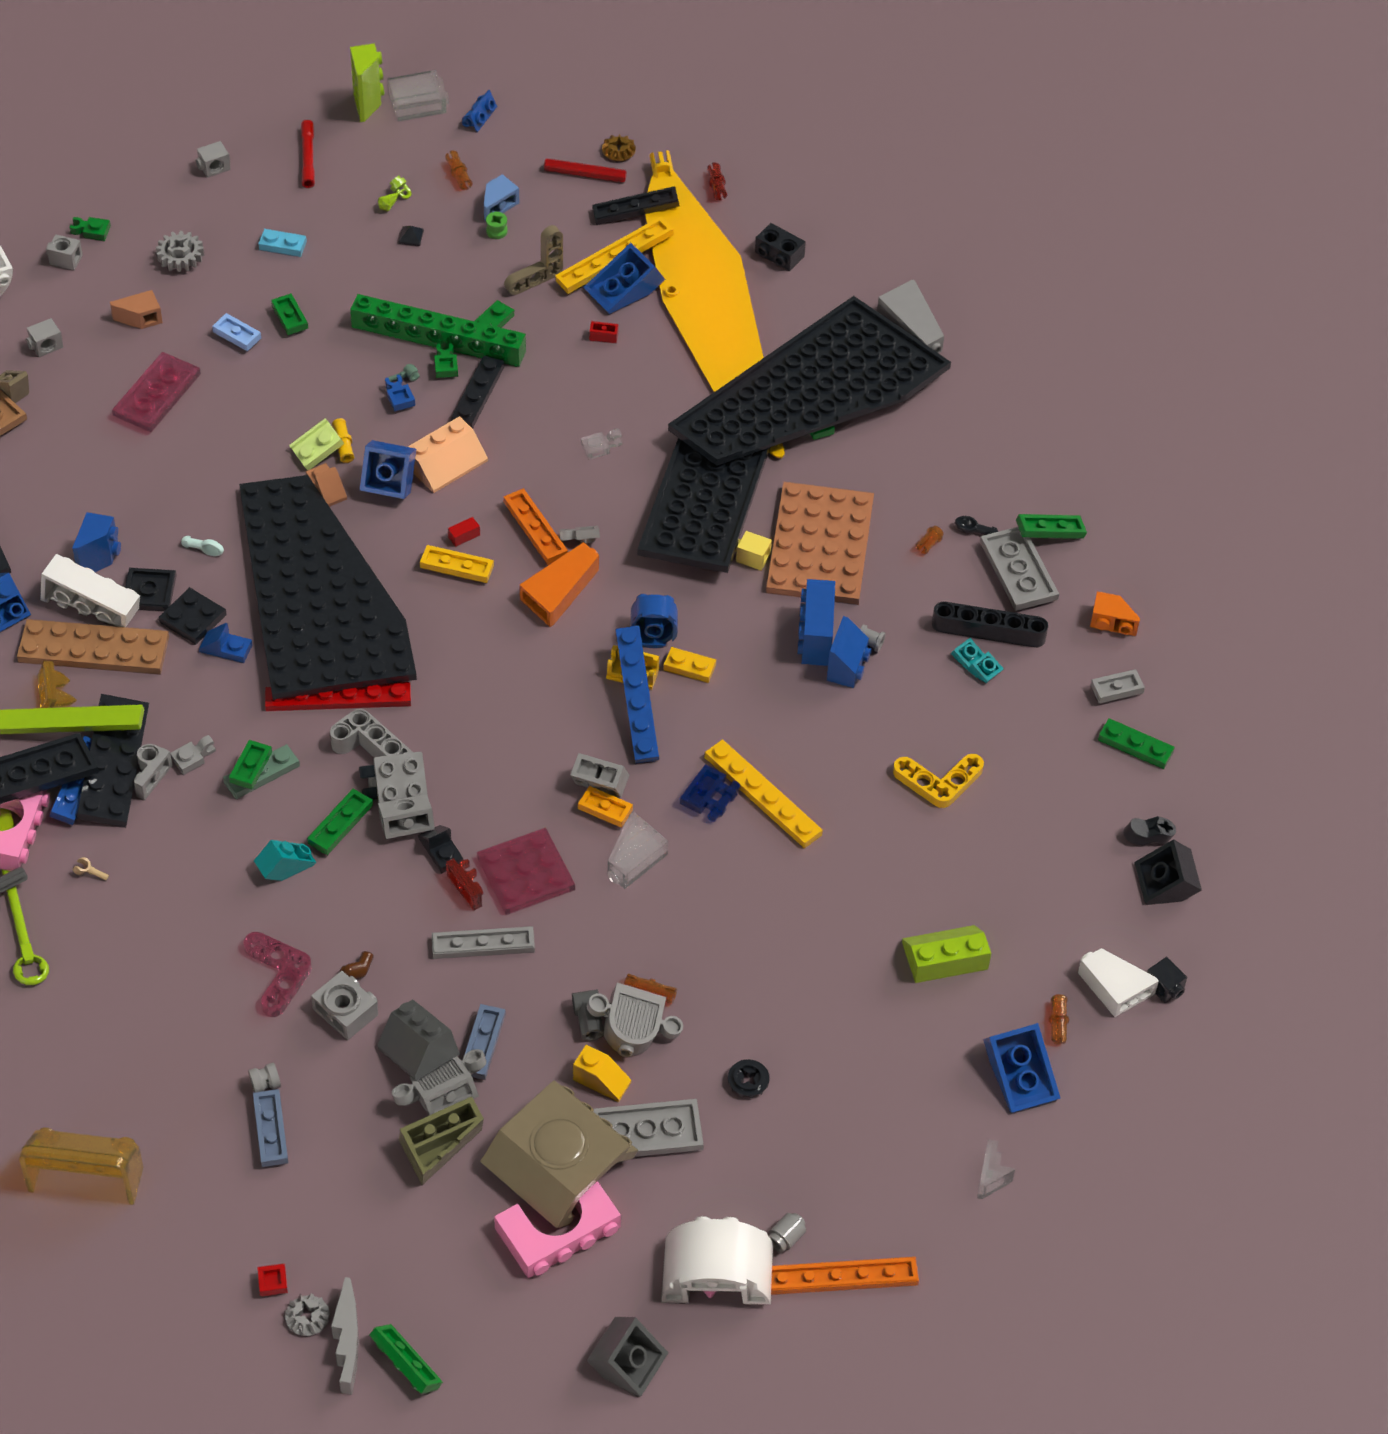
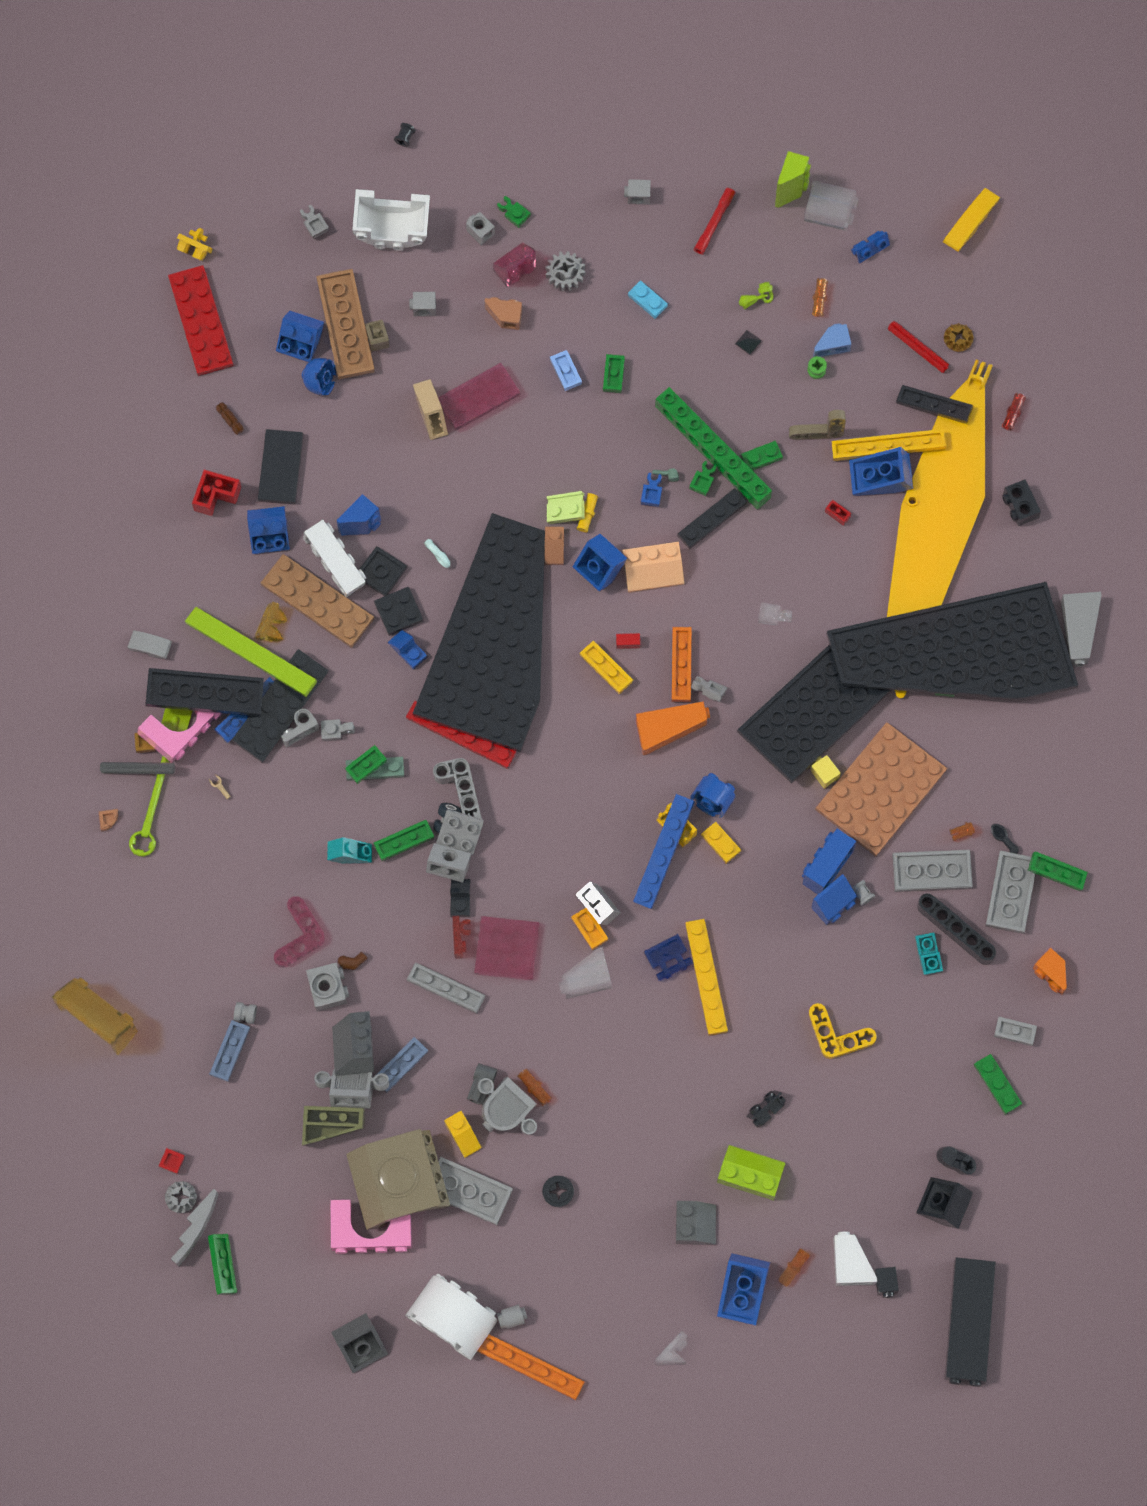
camera: 35 degrees right, 20 degrees up
(112, 420) = (430, 409): none -> tan slope
(123, 264) = (515, 264): none -> clear pink slope
(563, 52) = (971, 219): none -> yellow slope
(918, 873) = (759, 1111): none -> black hinge
(920, 1031) = (695, 1223): none -> dark grey slope
(924, 588) = (932, 870): none -> light grey tile
(1280, 973) = (970, 1321): none -> black brick

